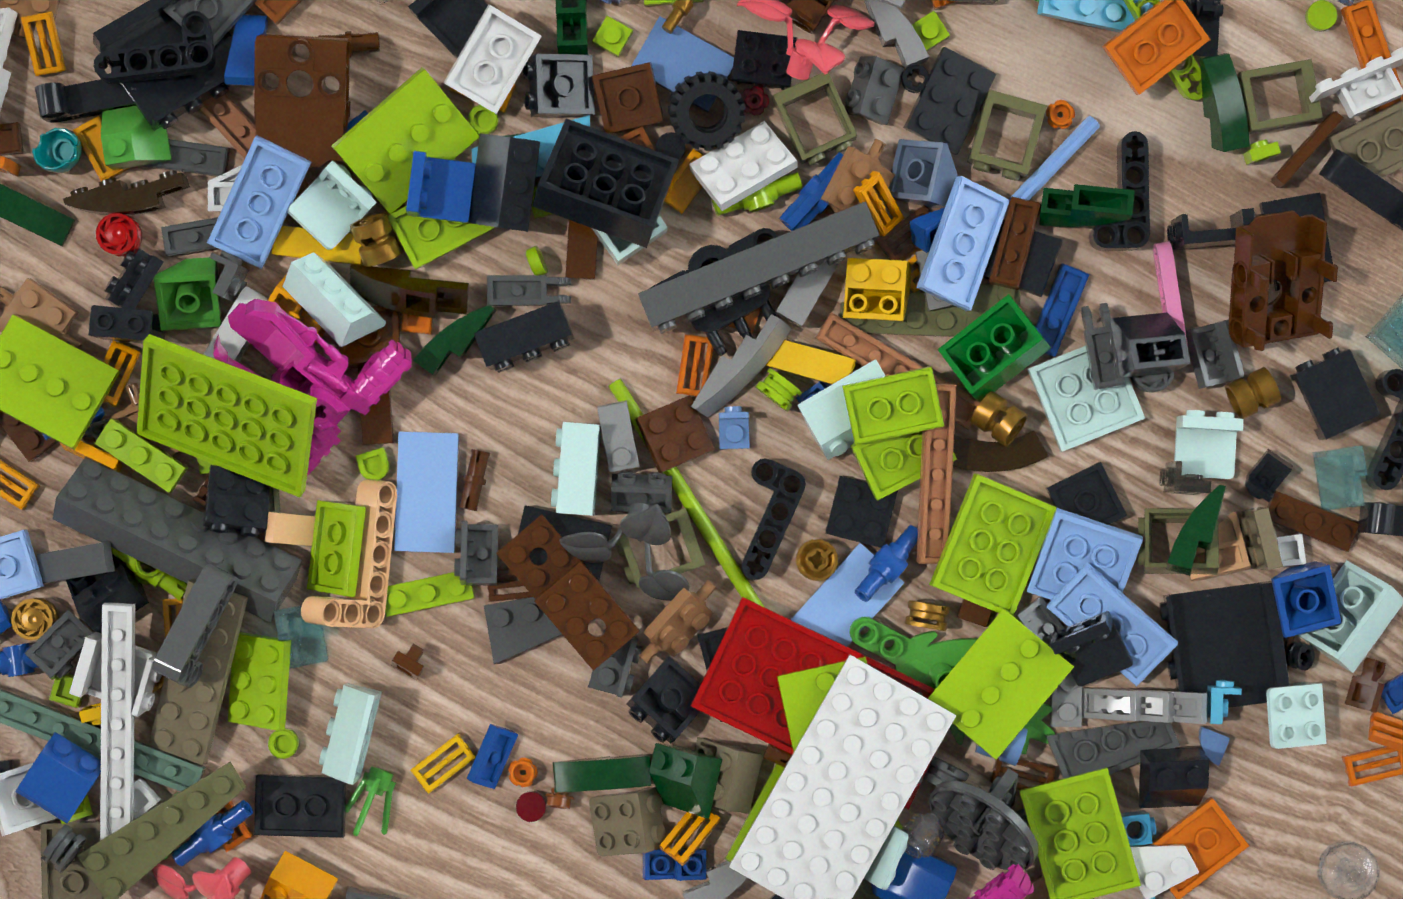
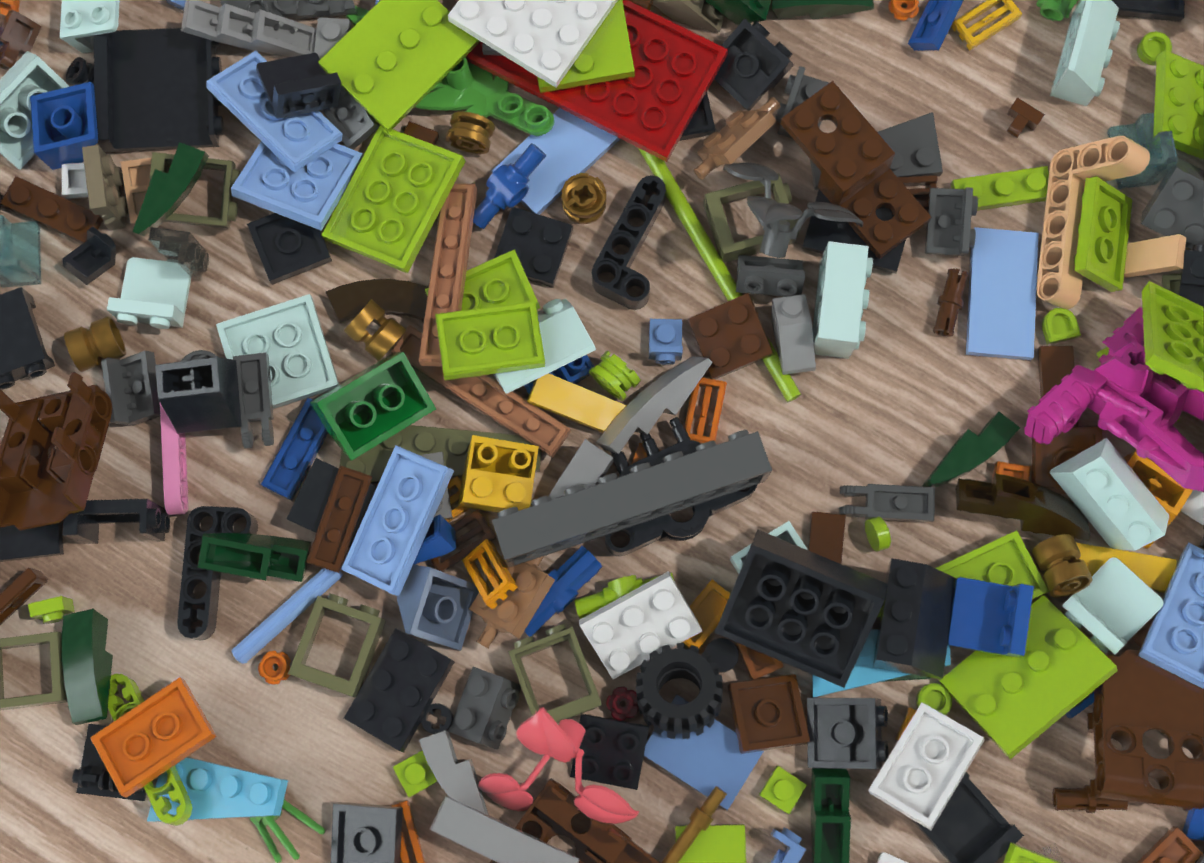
camera: 175 degrees left, 10 degrees down
(524, 337) = (895, 445): black brick -> none
(1216, 705) = (171, 36): medium azure bracket -> none

